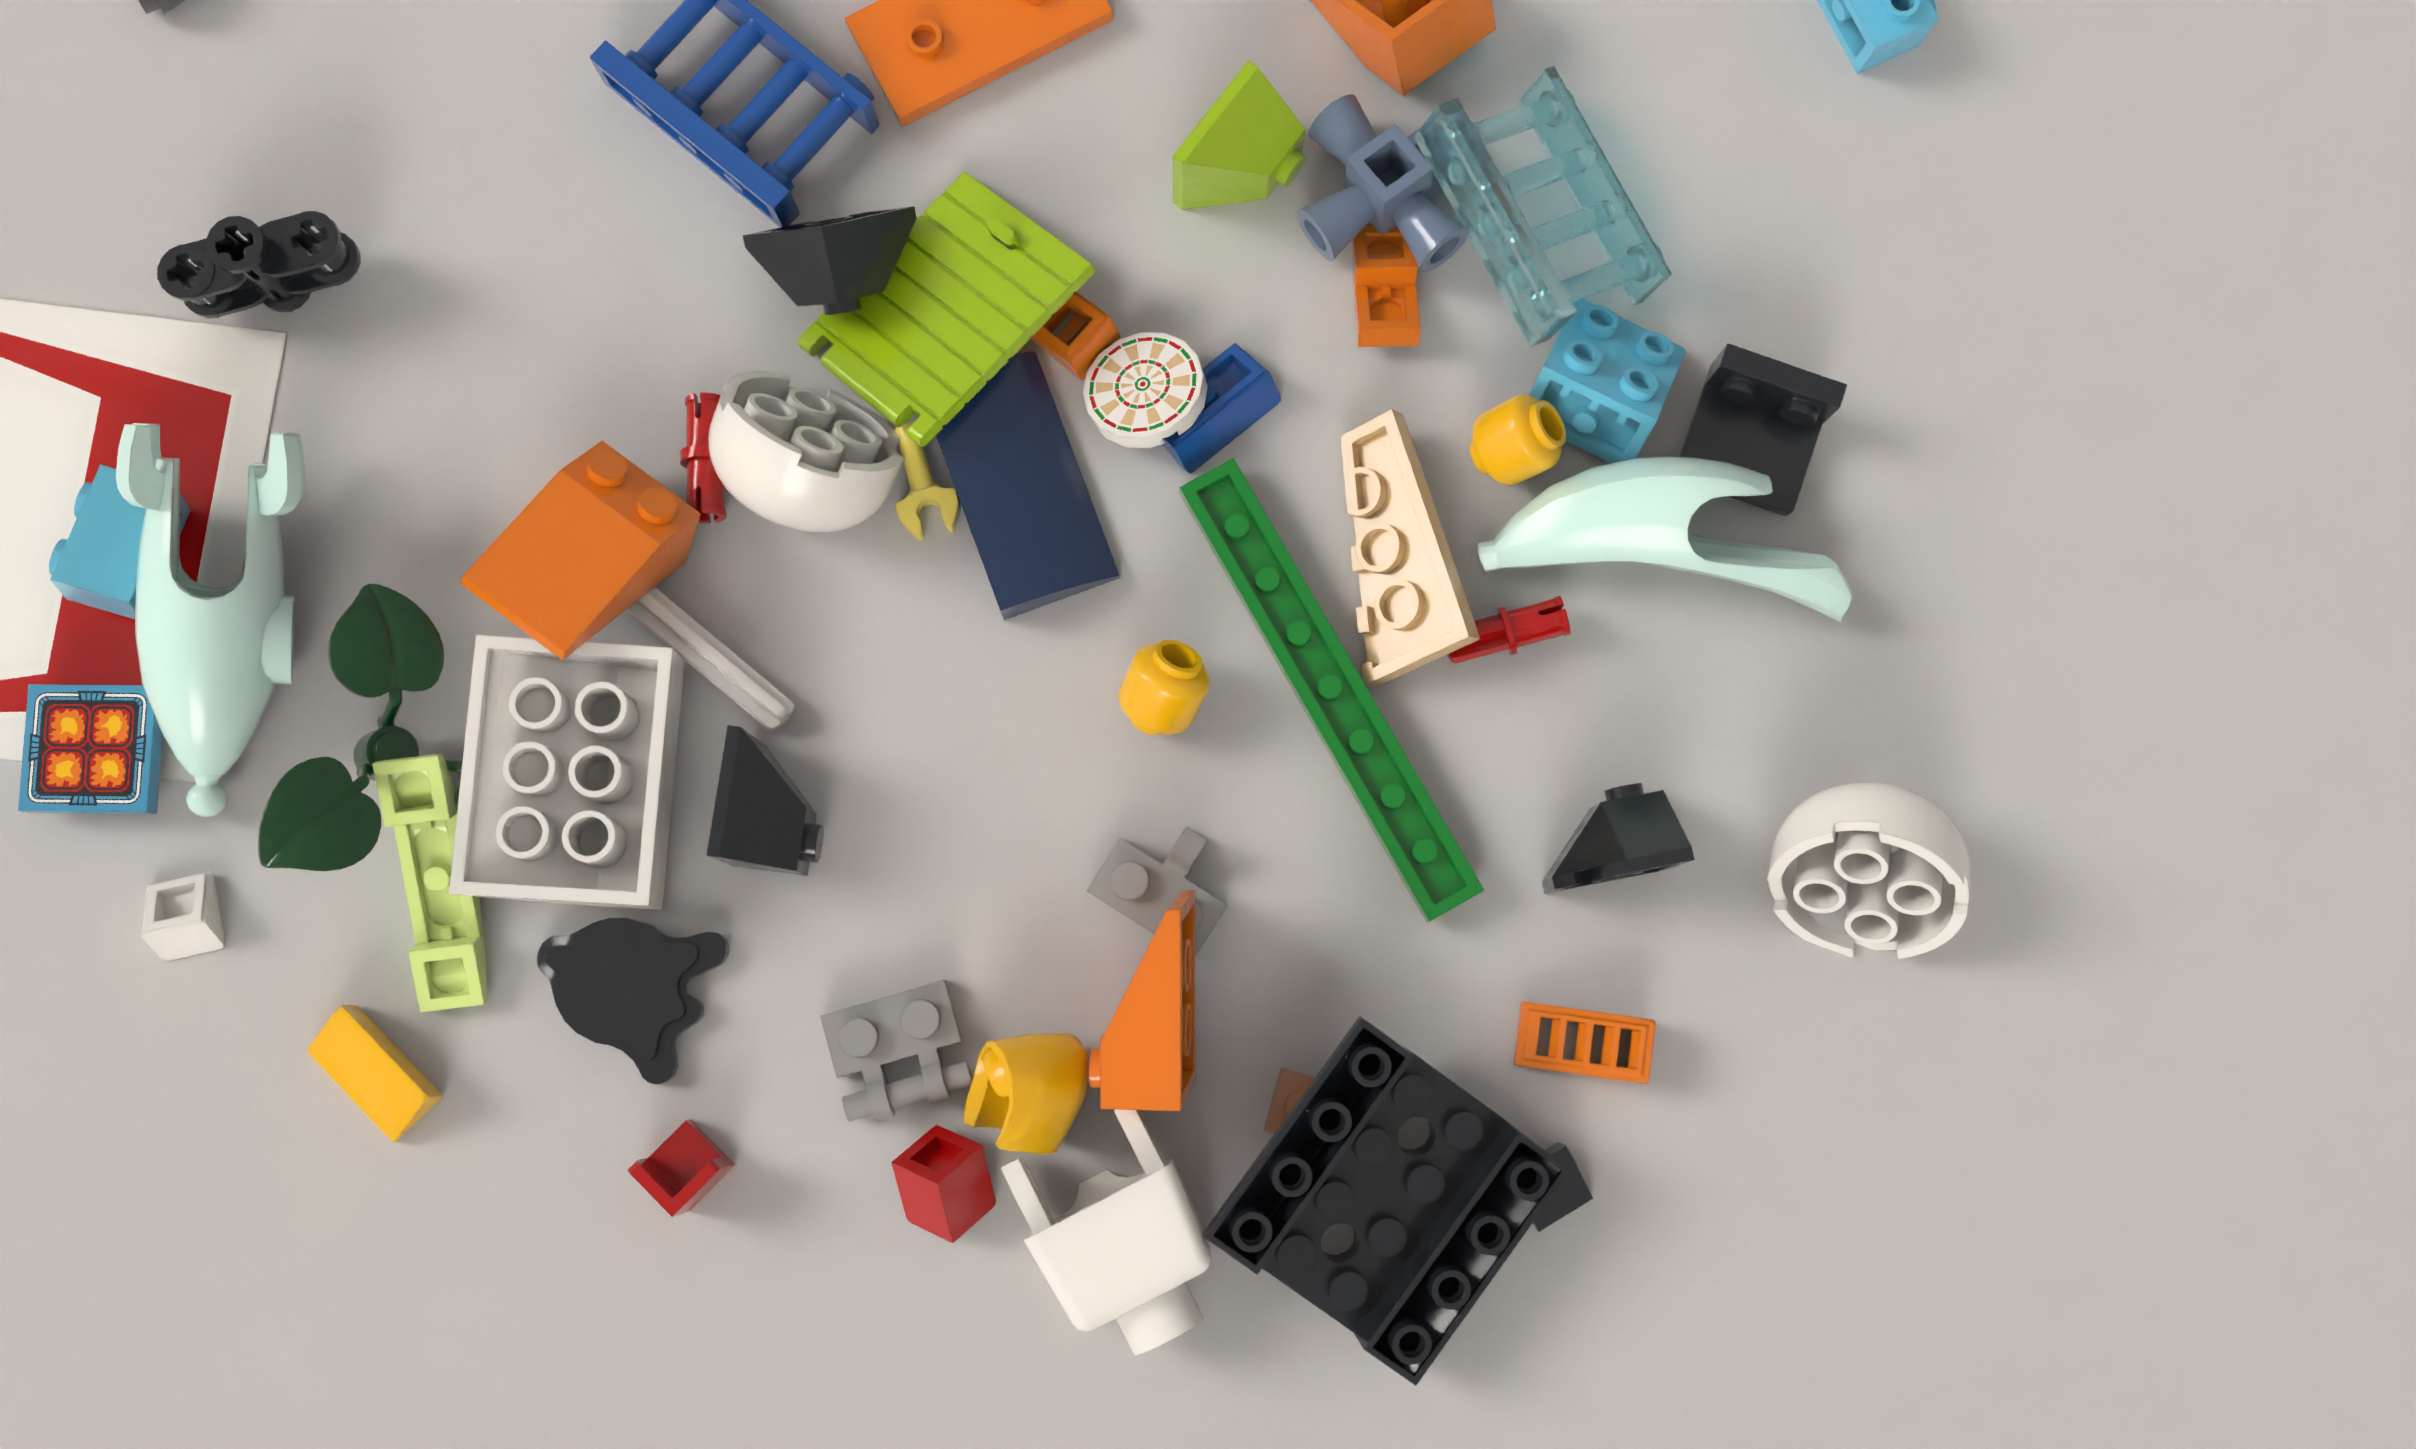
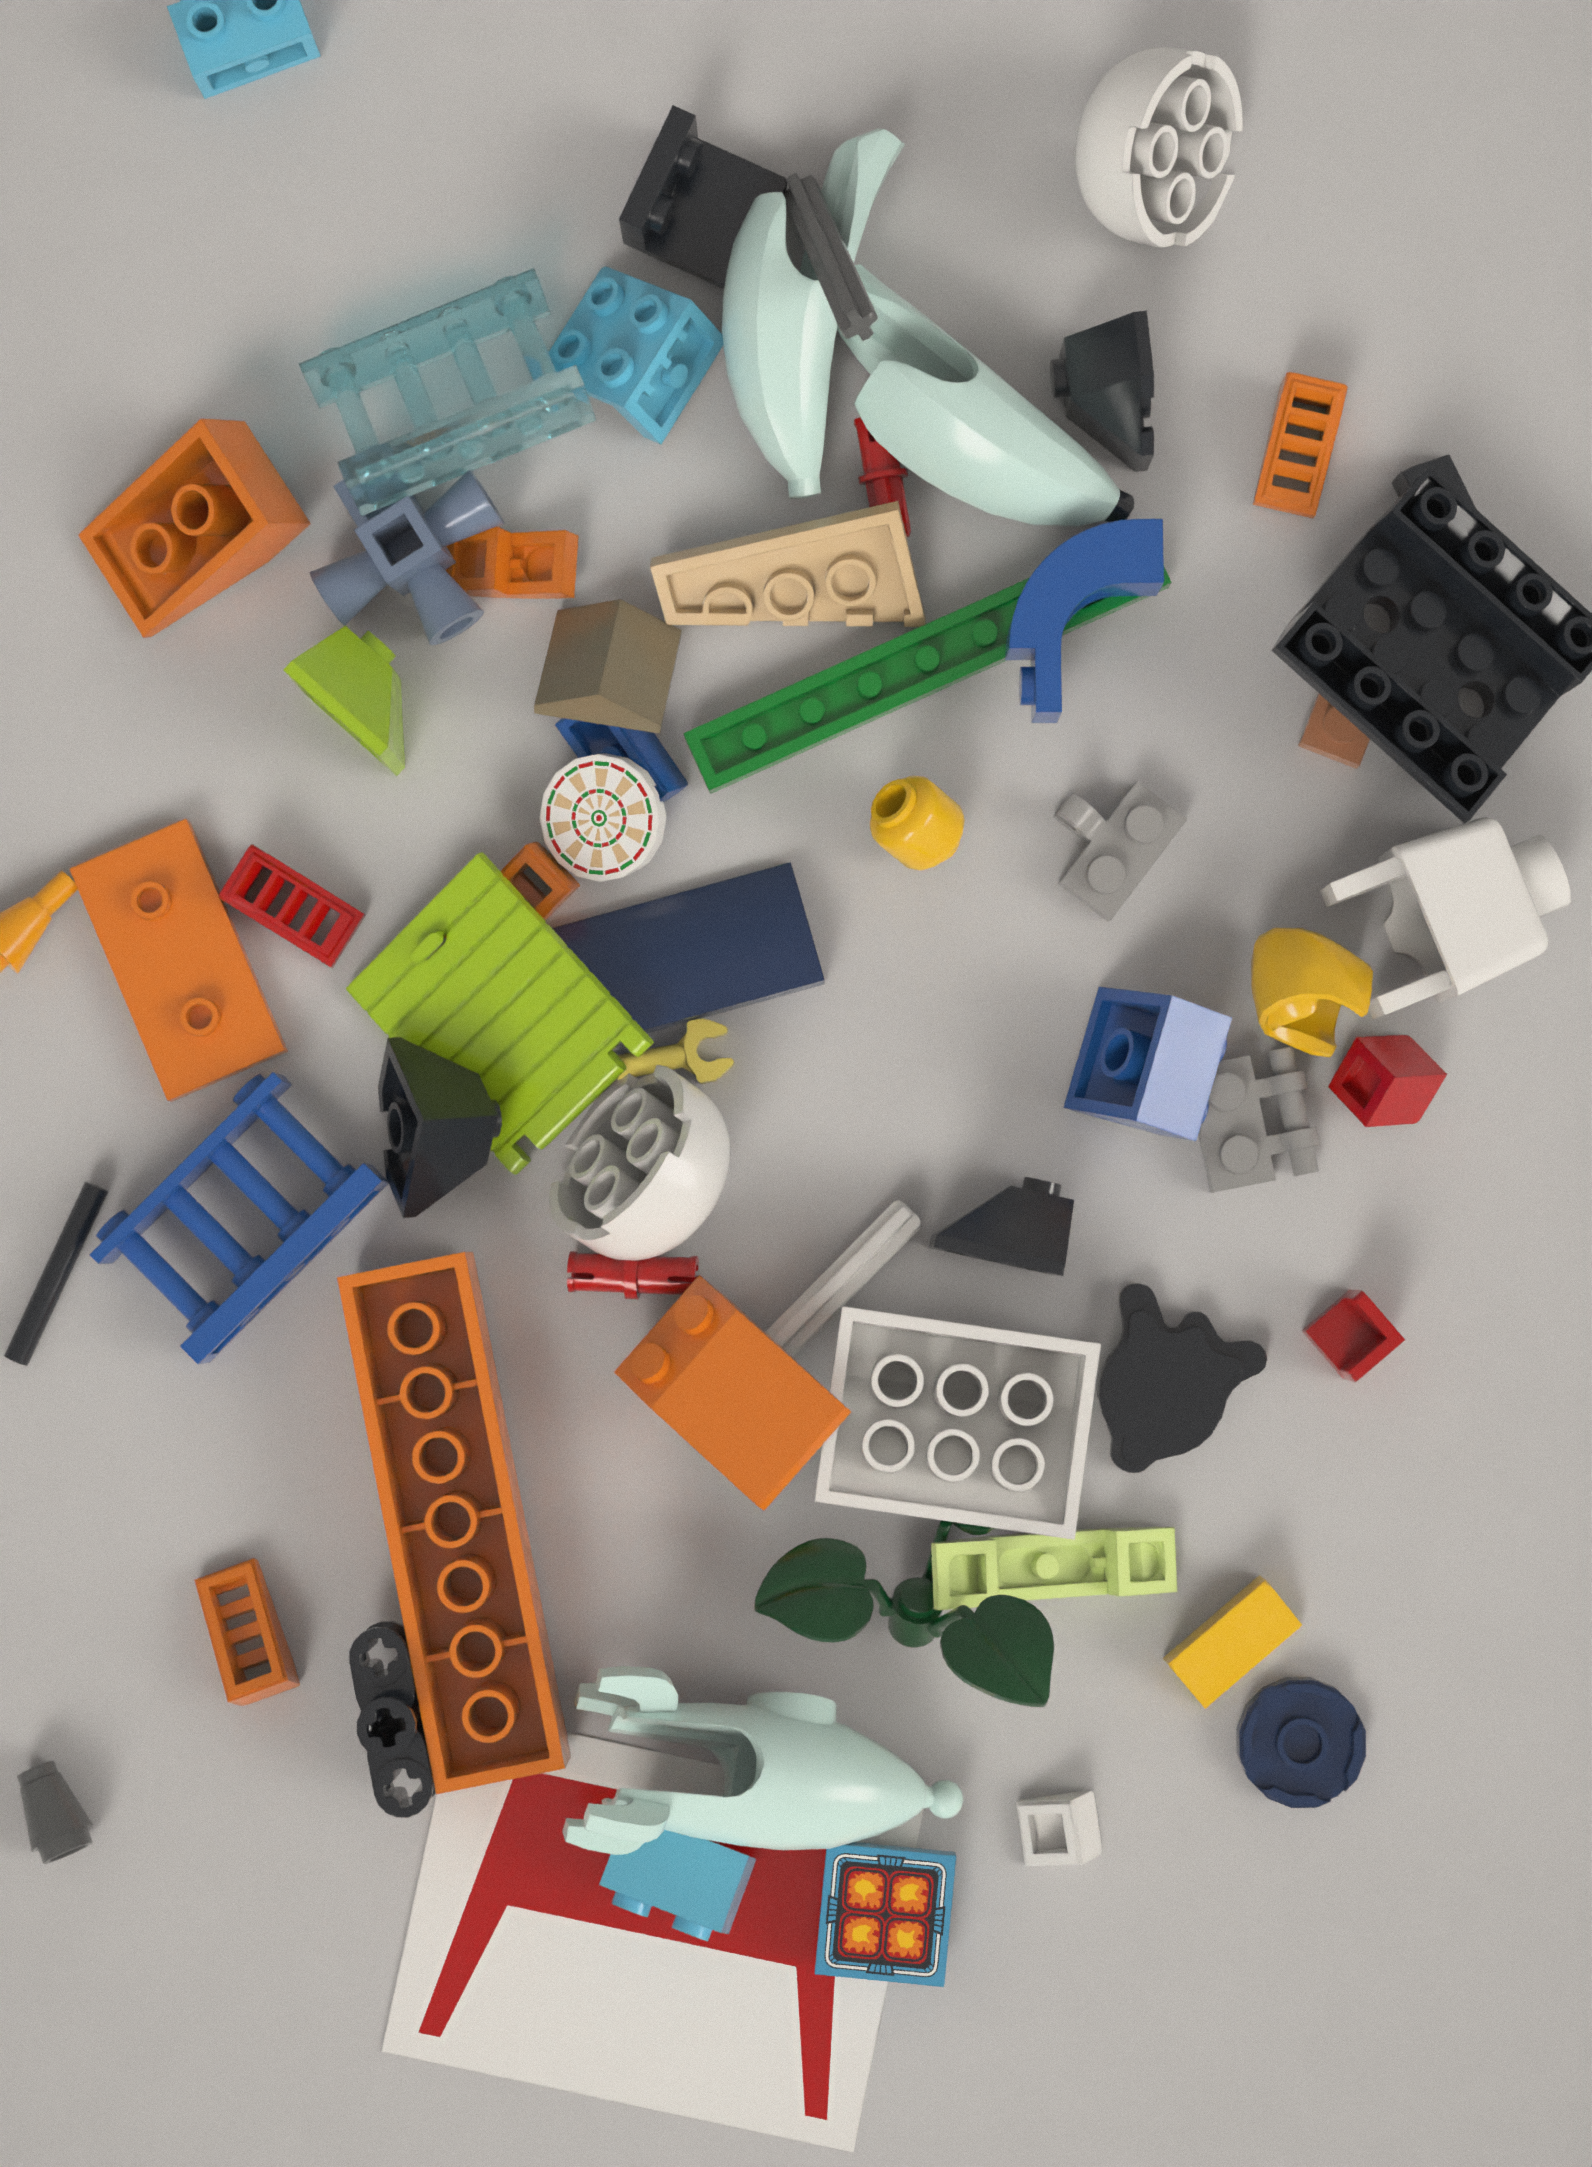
camera: 75 degrees left, 5 degrees up
(276, 1150) = (1300, 1742): none -> dark blue tile
(339, 159) = (223, 1640): none -> orange slope
(450, 307) = (454, 1522): none -> orange brick
(939, 937) = (1148, 1062): none -> blue slope
(1061, 68) = (246, 874): none -> red slope
(1151, 1041) = (1275, 862): orange slope -> none
(1290, 382) = (609, 666): none -> dark tan slope
(1421, 815) = (1090, 566): none -> blue arch
(1517, 439) = (691, 444): yellow head -> none
(1563, 700) = (969, 427): none -> light aqua piece
(1708, 540) = (830, 257): none -> dark grey axle

